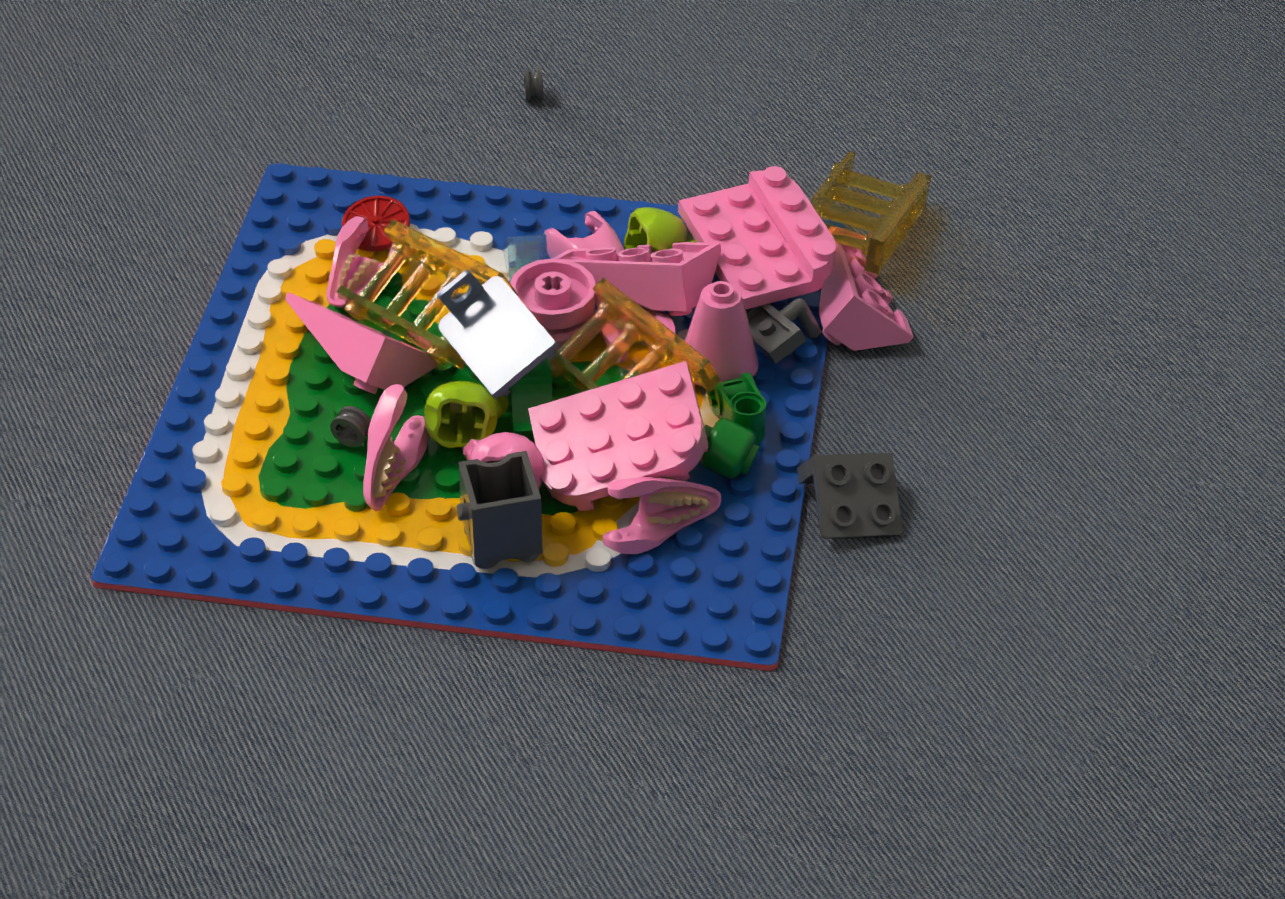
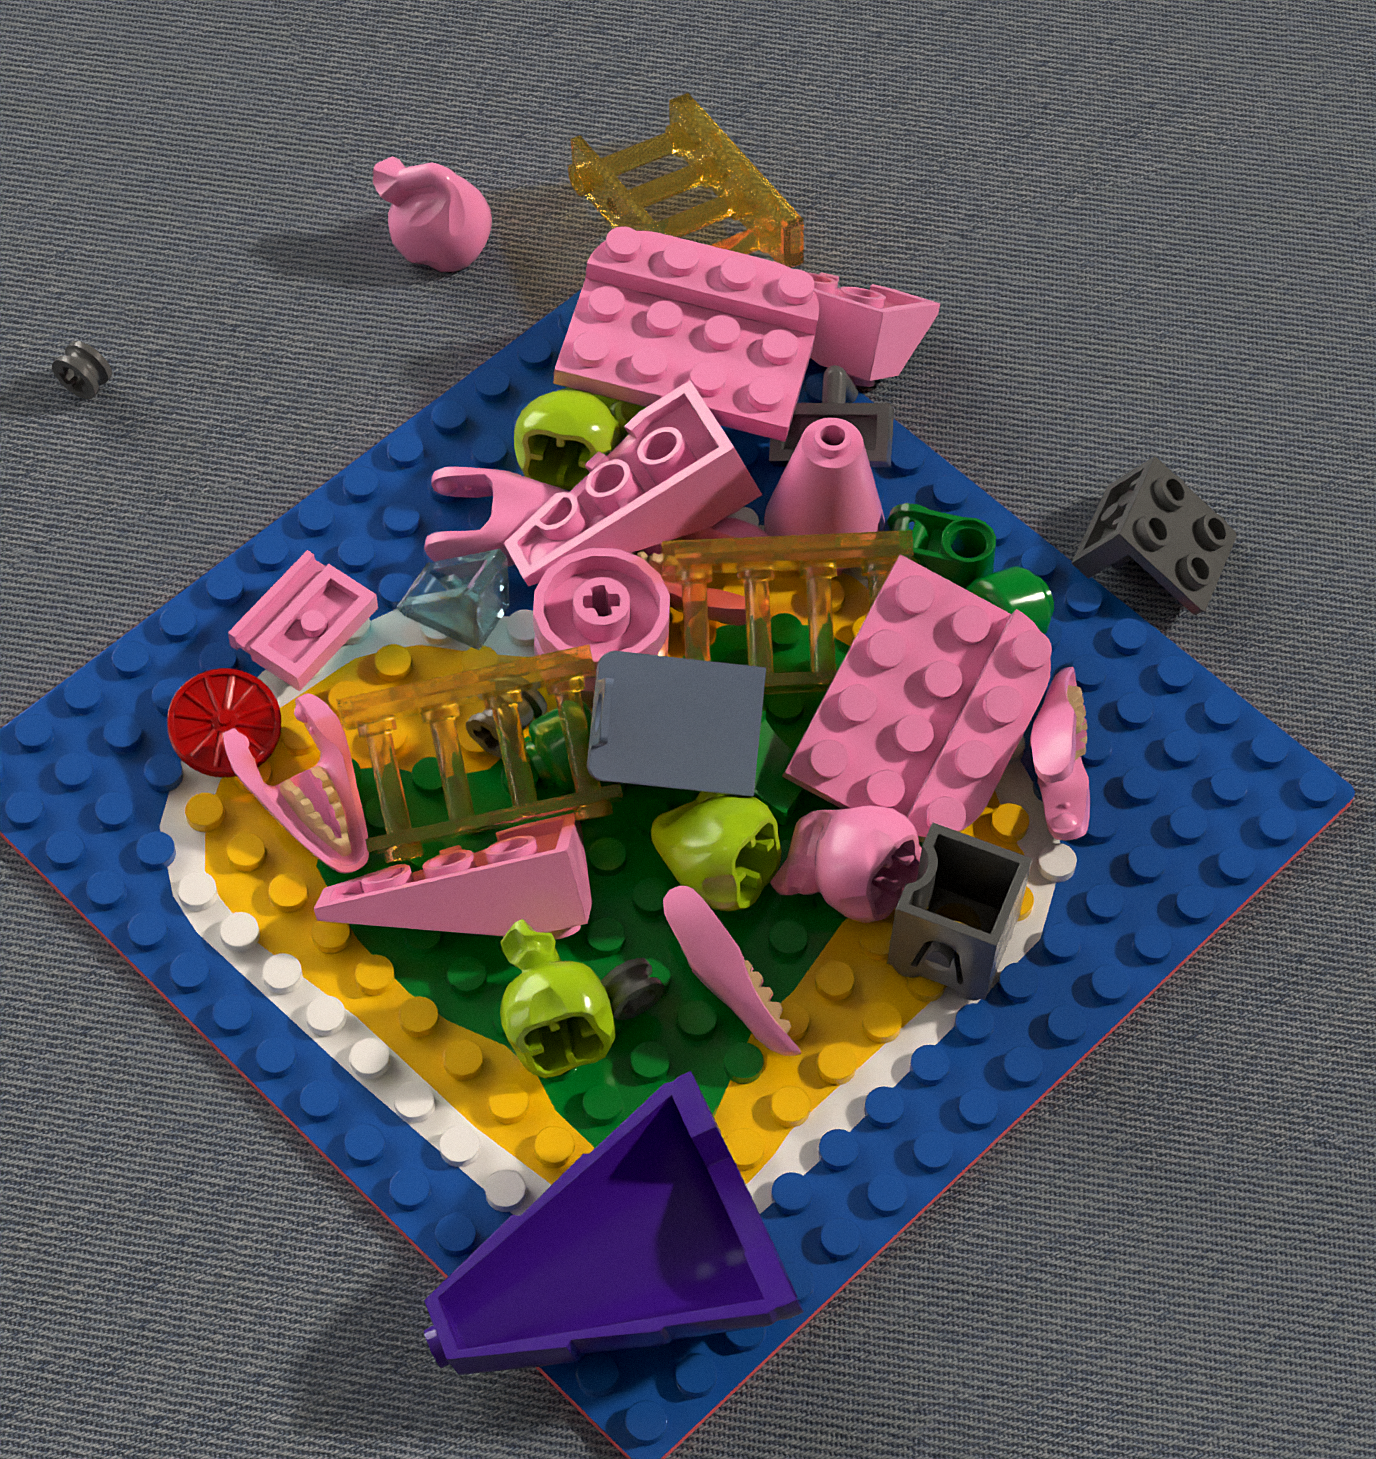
camera: 55 degrees left, 15 degrees up
(195, 490) = (619, 1252): none -> dark purple cone
(308, 396) = (555, 1008): none -> lime piece
(458, 215) = (303, 620): none -> bright pink plate
(753, 138) = (433, 214): none -> bright pink piece

